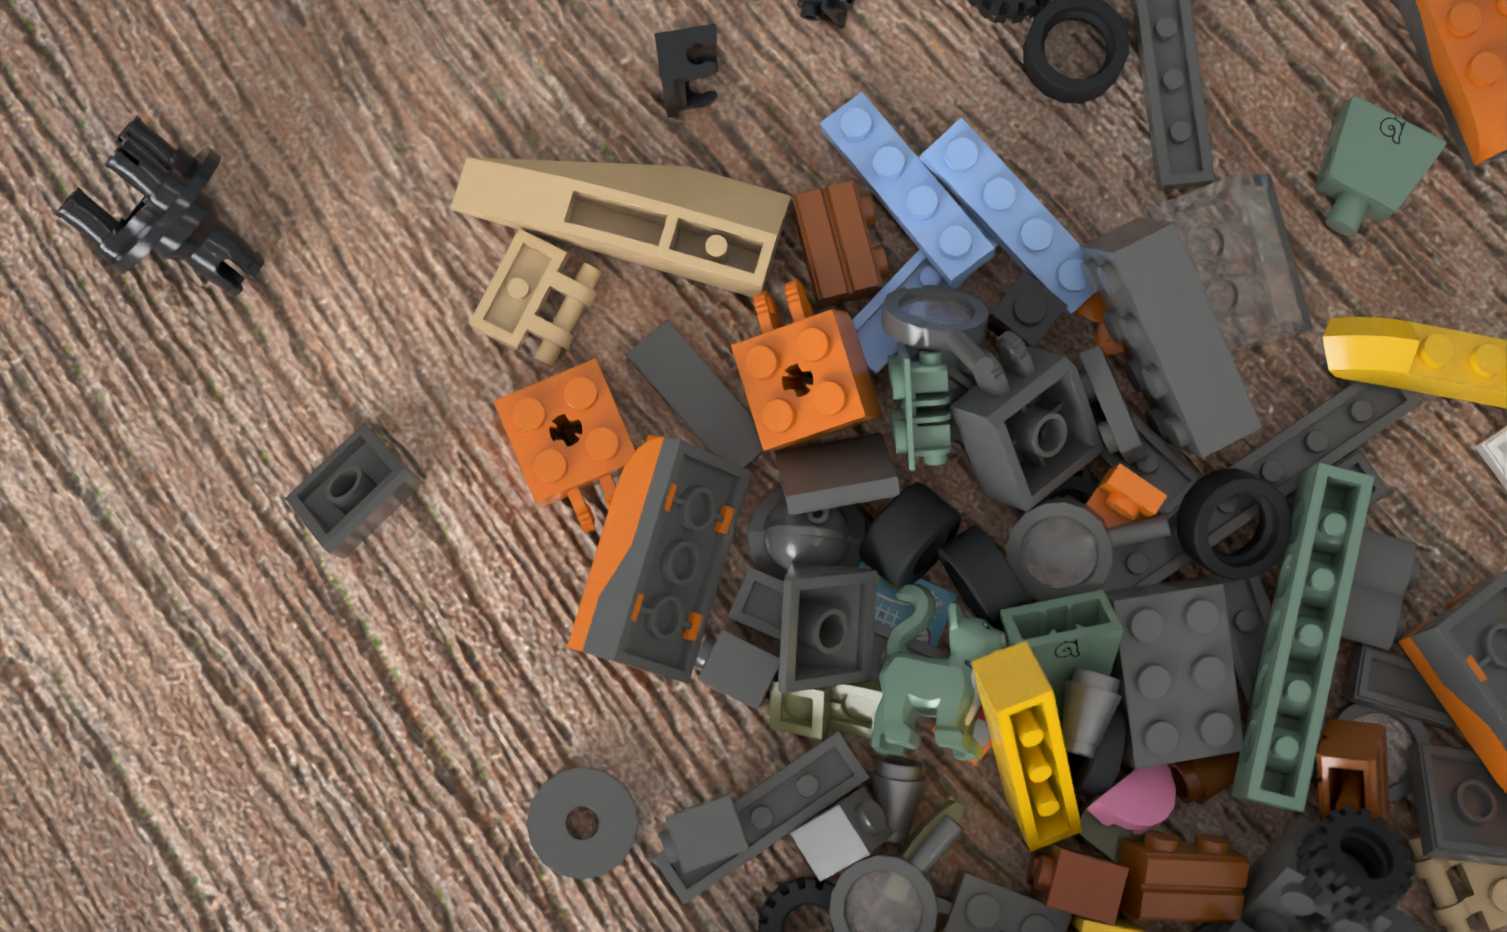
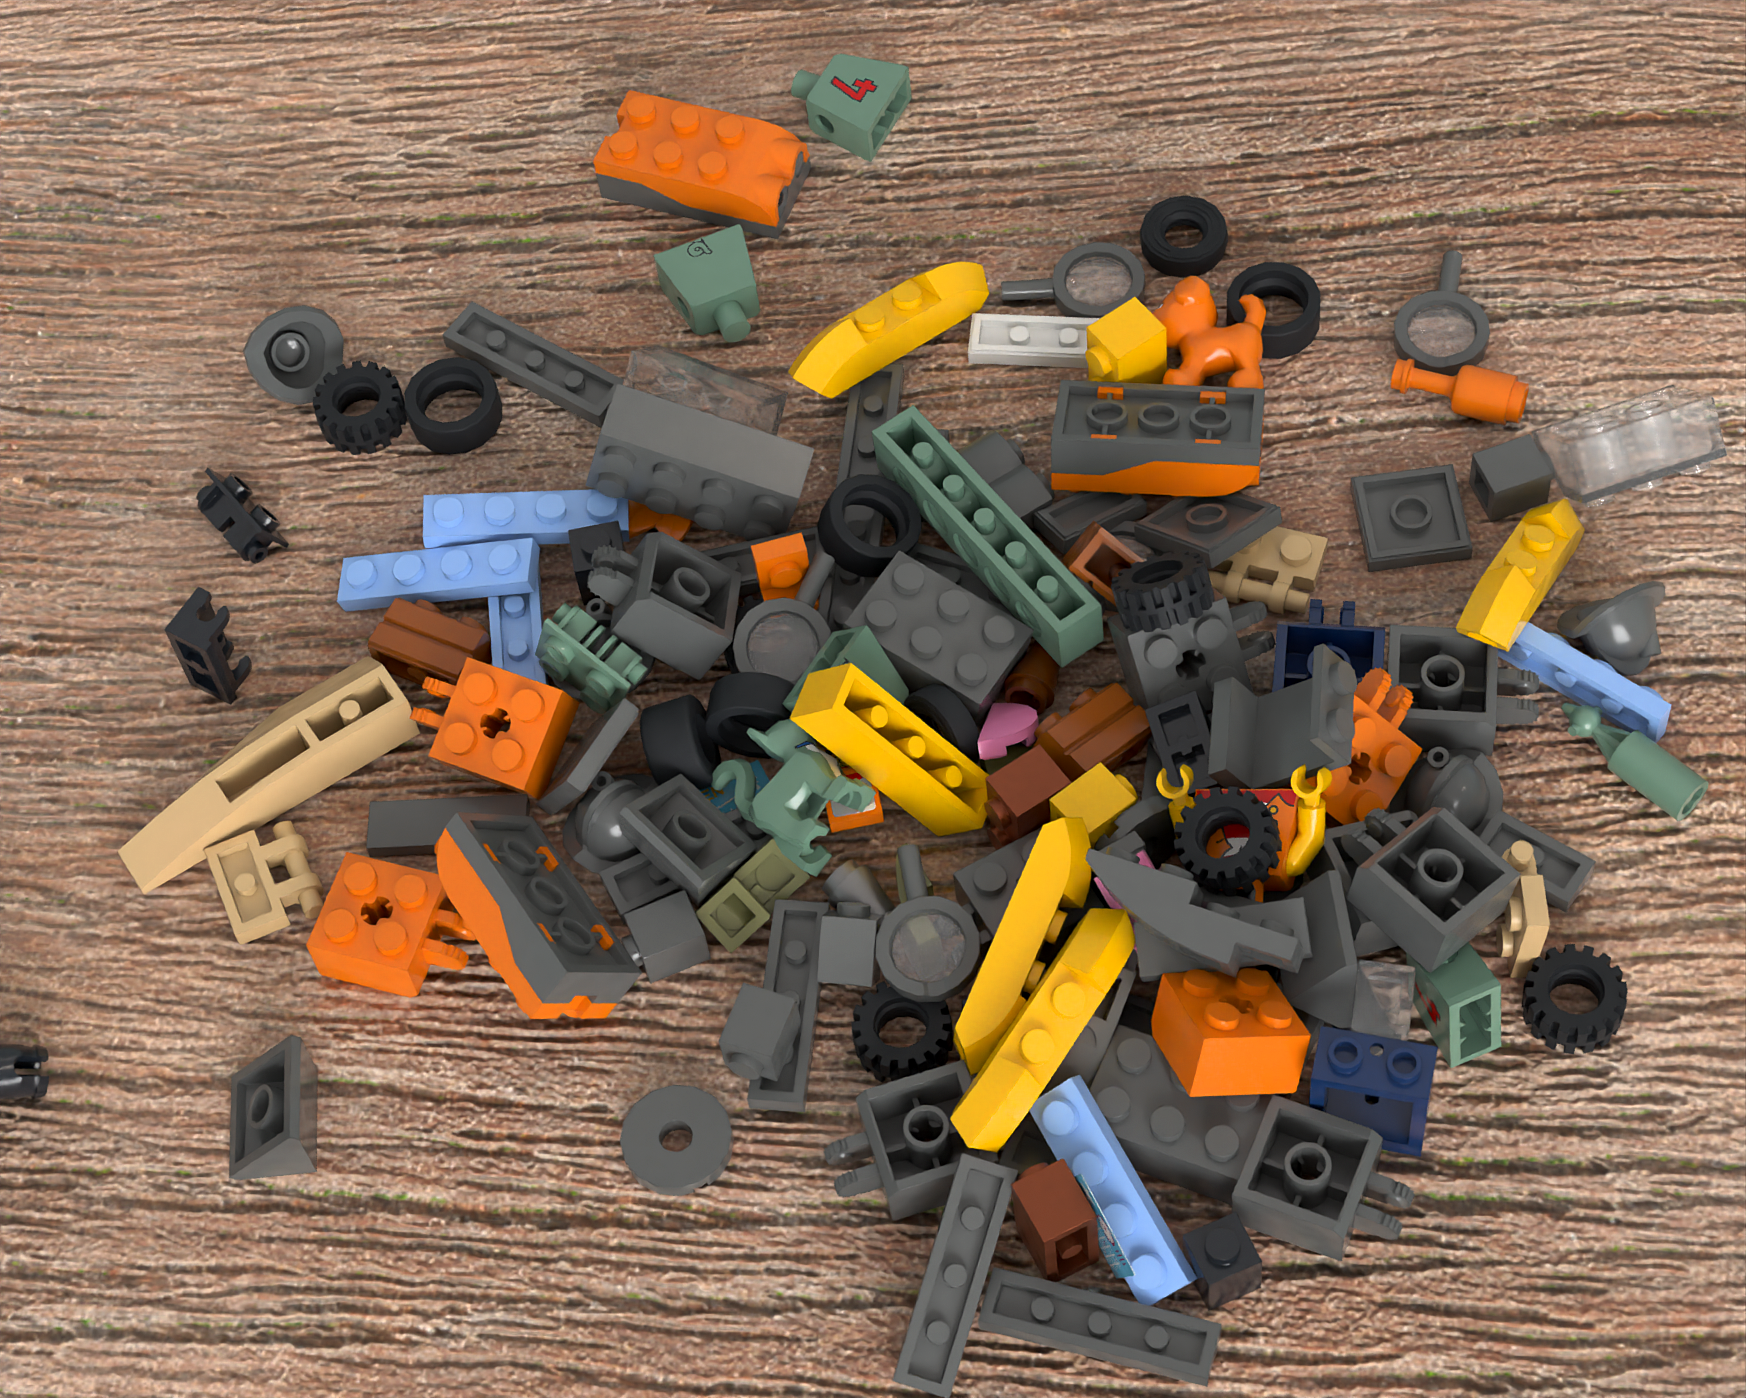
camera: 40 degrees left, 25 degrees down
(940, 321) = (549, 598): dark grey piece -> none
(1088, 710) = (906, 685): flat silver cone -> none
(1101, 385) = (722, 543): dark grey plate -> none

